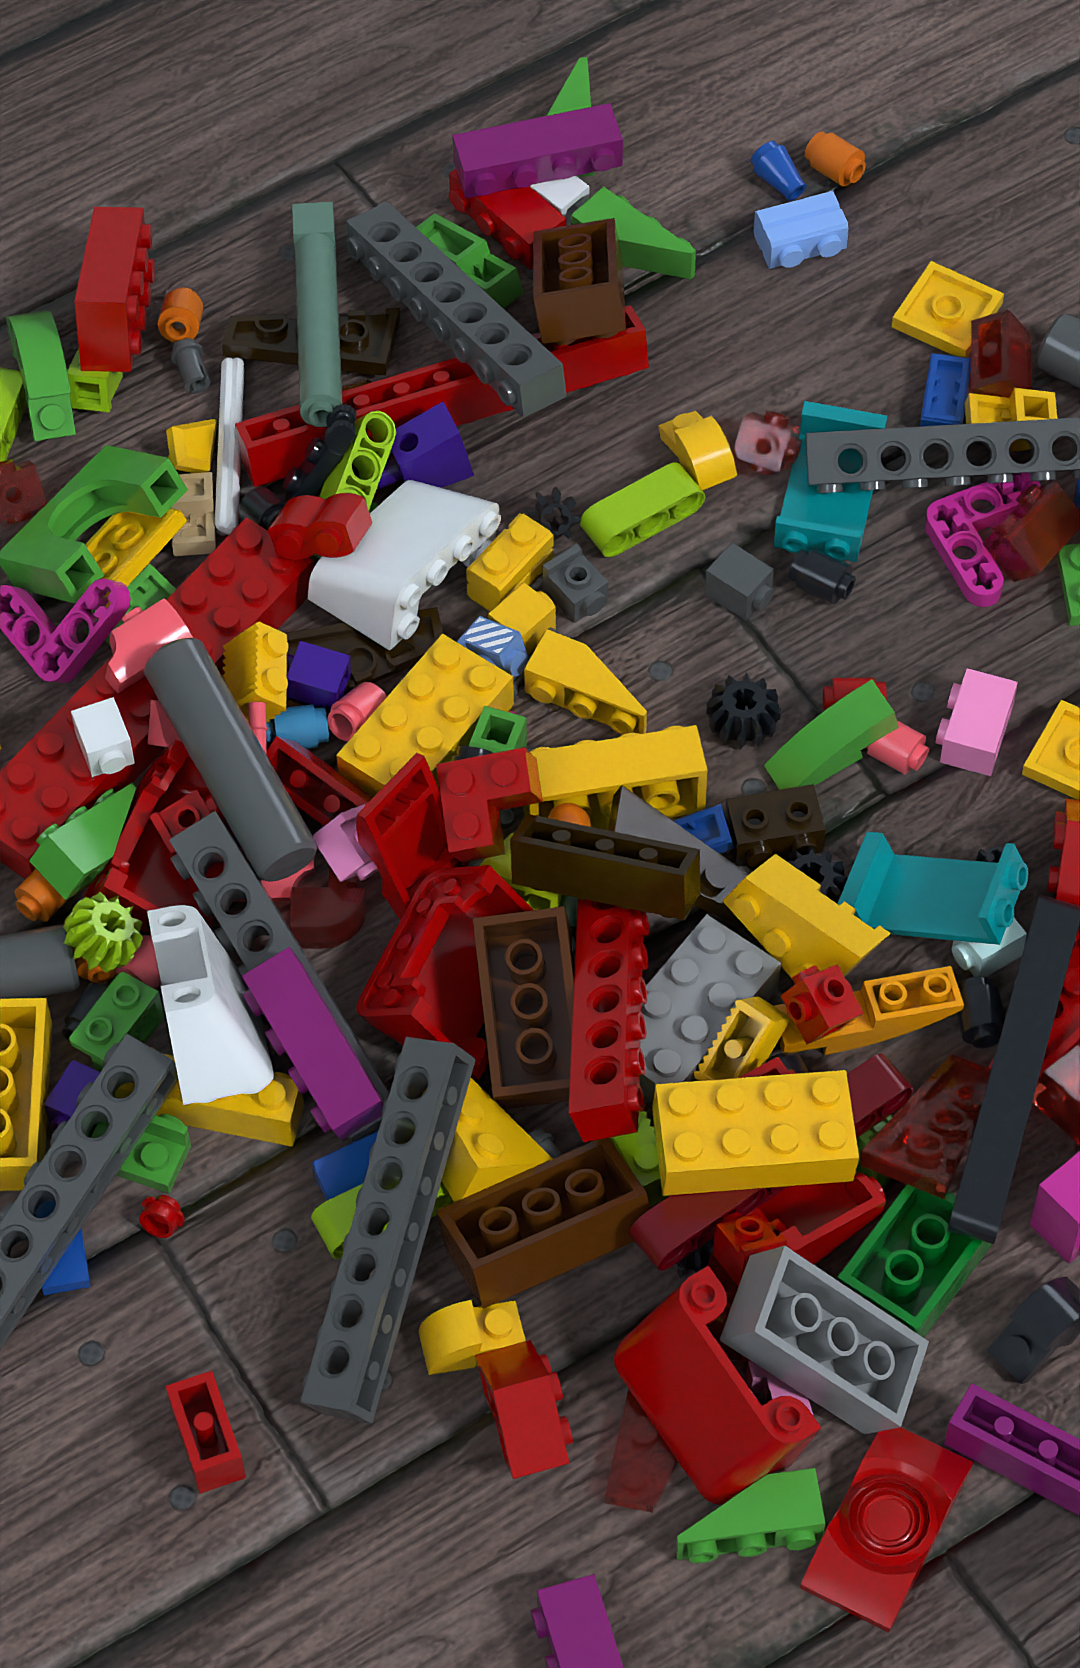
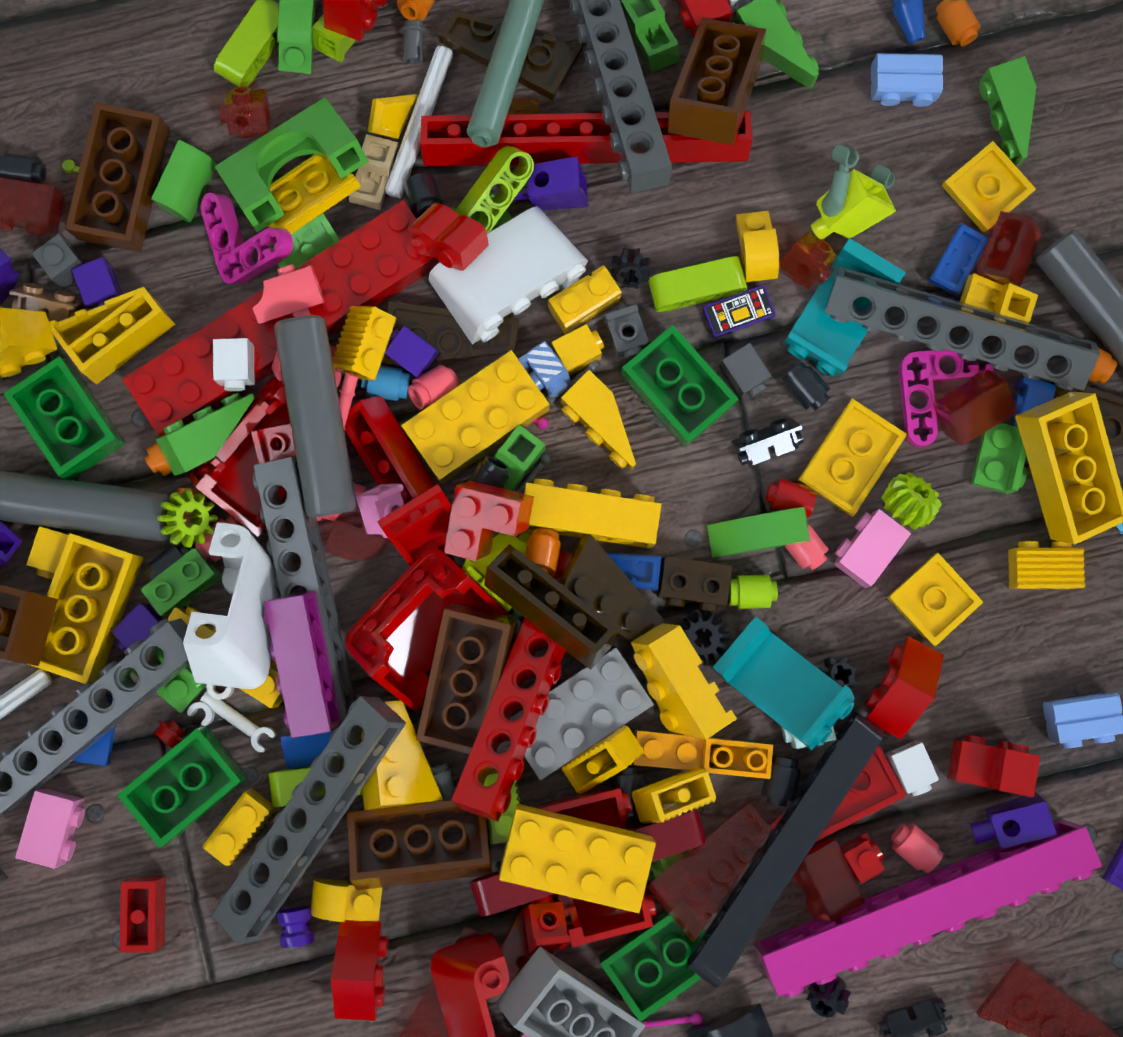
camera: 15 degrees right, 25 degrees up
(40, 1376) = (51, 828): none -> bright pink brick
(204, 1260) = (182, 786): none -> green brick
(208, 1161) = (212, 704): none -> white bar
(297, 1290) = (239, 827): none -> yellow brick
(322, 454) = (473, 169): black hinge -> none
(417, 1390) = (296, 930): none -> dark purple wheel
(665, 617) = (679, 386): none -> green brick
(704, 526) = (738, 311): none -> tile
(743, 711) = (719, 484): black gear -> none
(790, 361) = (854, 198): none -> neon yellow torso
(814, 638) = (779, 435): none -> hinge
(821, 1002) = (667, 756): red brick -> none
(851, 1045) = (673, 796): none -> yellow brick
(852, 813) = (752, 591): none -> lime brick
(912, 637) = (852, 457): none -> yellow tile
(933, 216) = (1011, 98): none -> bright green slope
(990, 1336) = (695, 1018): none -> dark pink hinge
(1002, 650) = (911, 500): none -> lime gear

